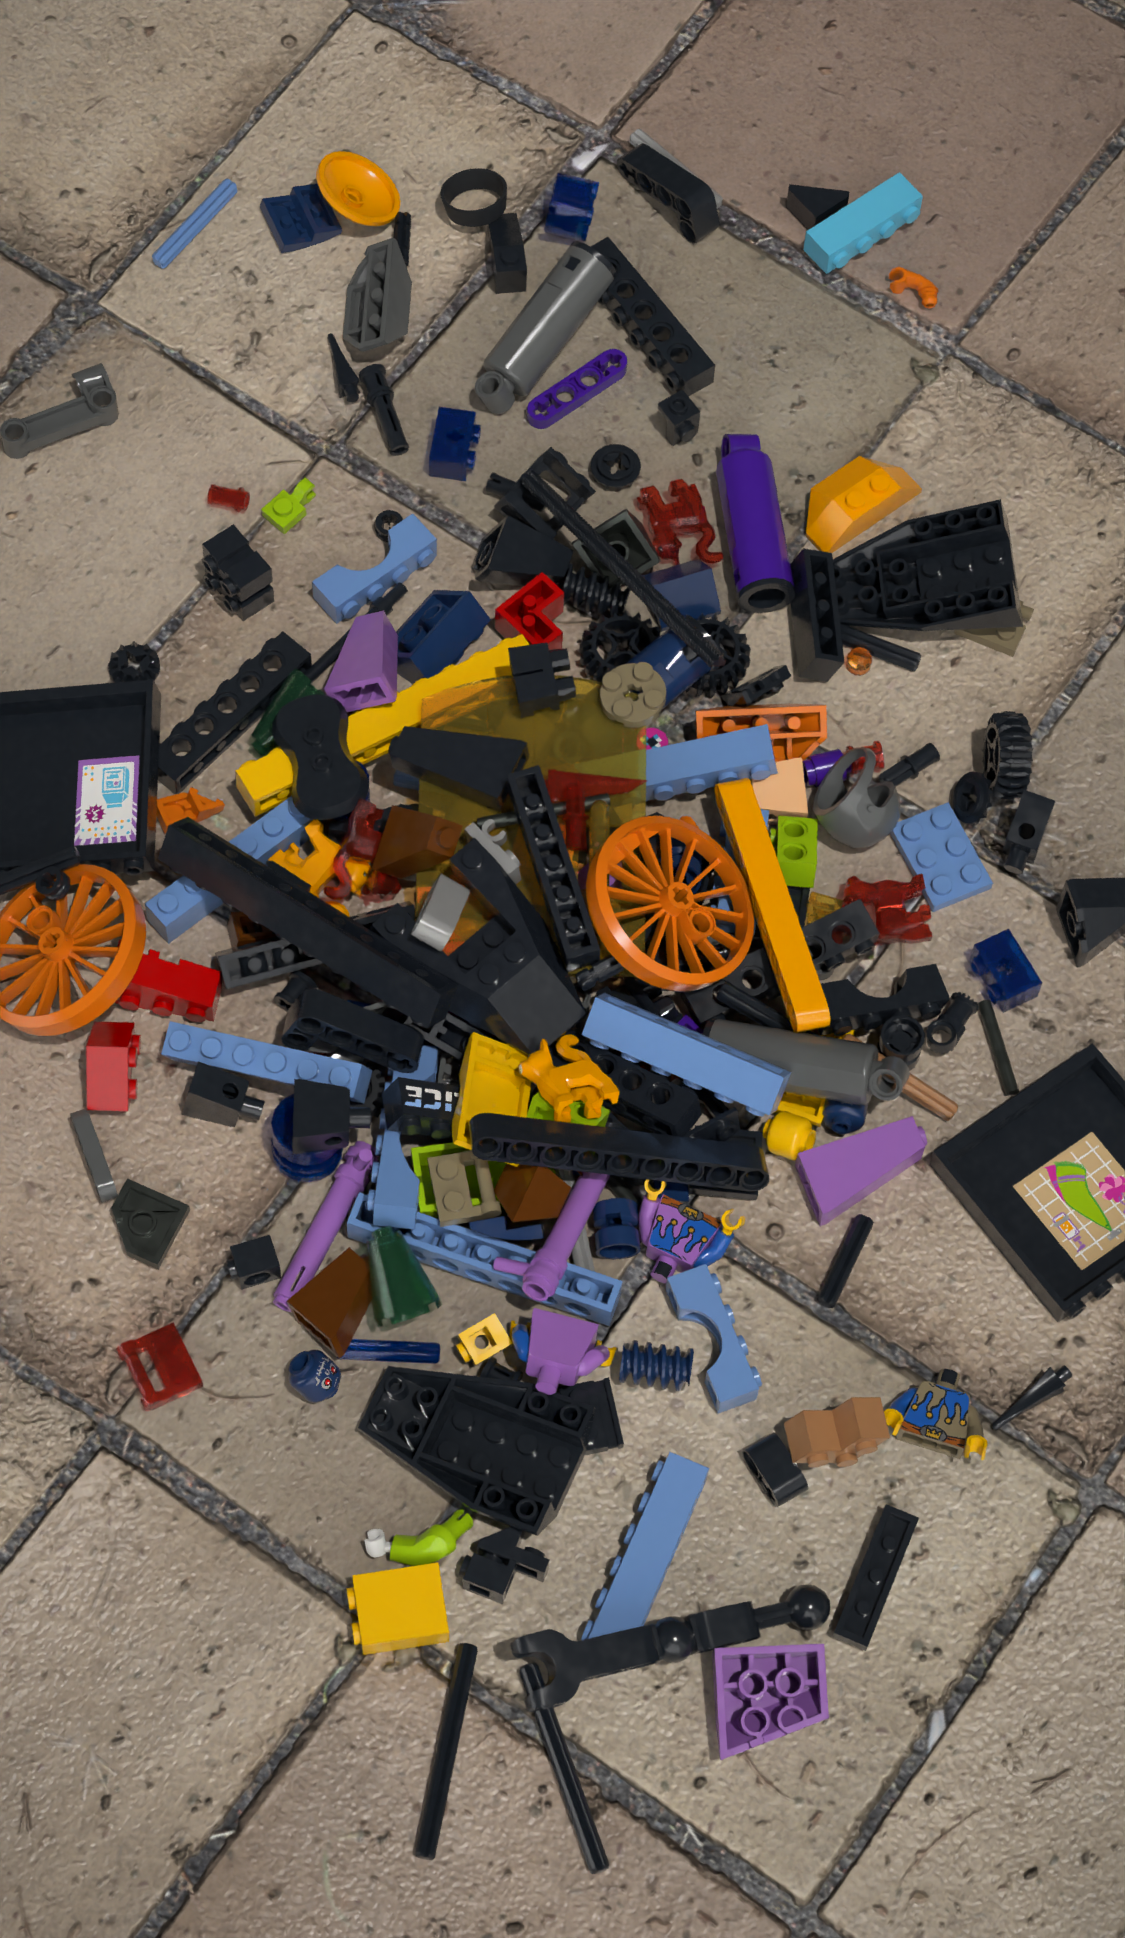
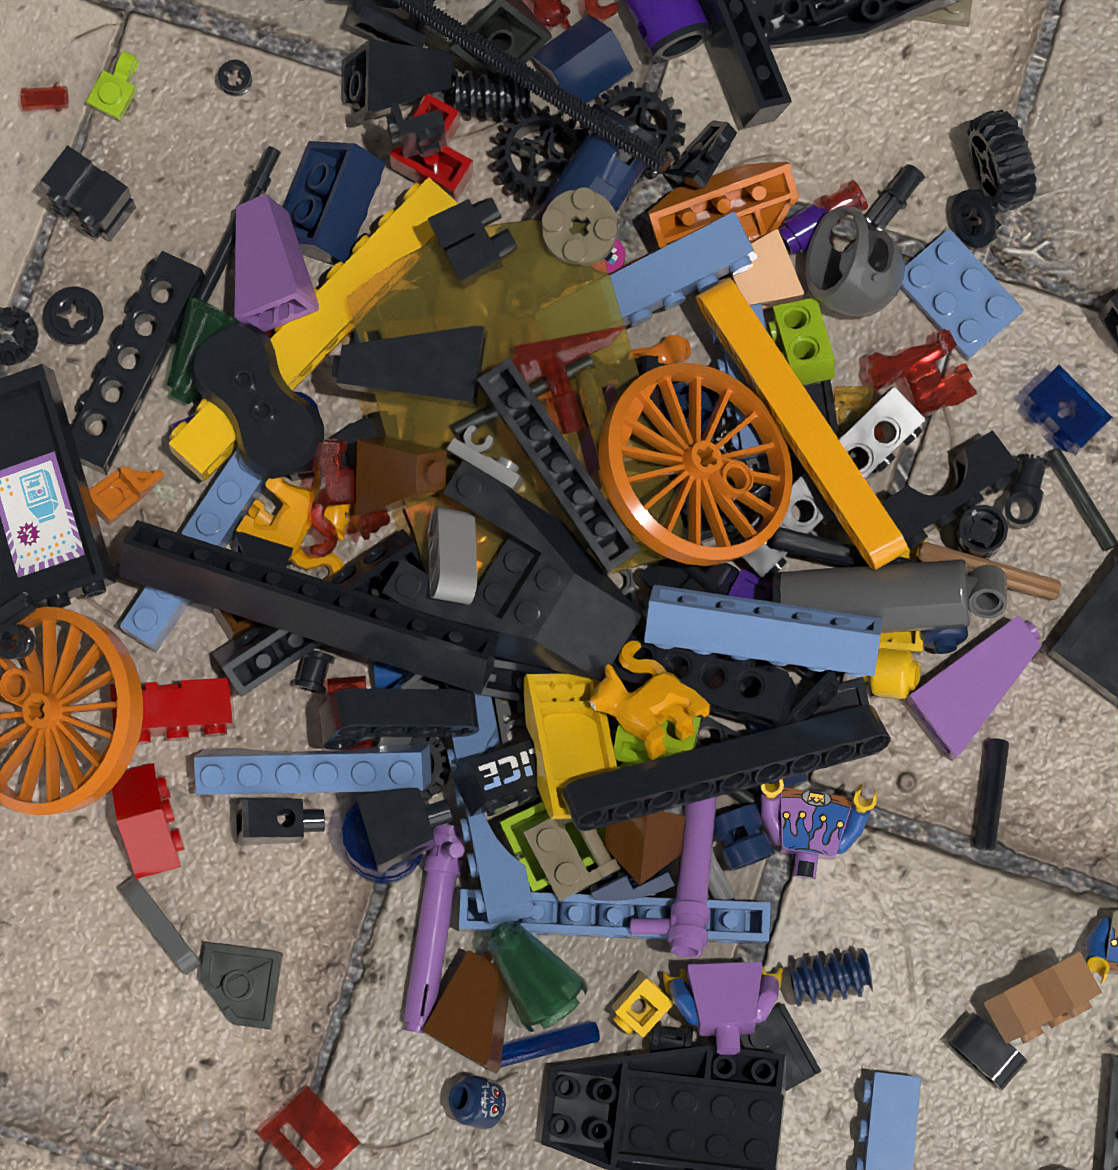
camera: 15 degrees left, 15 degrees up
(188, 654) = (62, 303): none -> black gear
(254, 1262) = (370, 994): black brick -> none
(345, 591) = (211, 176): medium blue arch -> none
(522, 590) = (416, 135): none -> black bracket
(599, 972) = (642, 564): black axle -> none
(697, 1299) = (911, 964): medium blue arch -> none
(859, 661) = (802, 92): clear orange hinge -> none
(880, 648) = (821, 63): black axle -> none
(1027, 831) = (1048, 226): black torso -> none

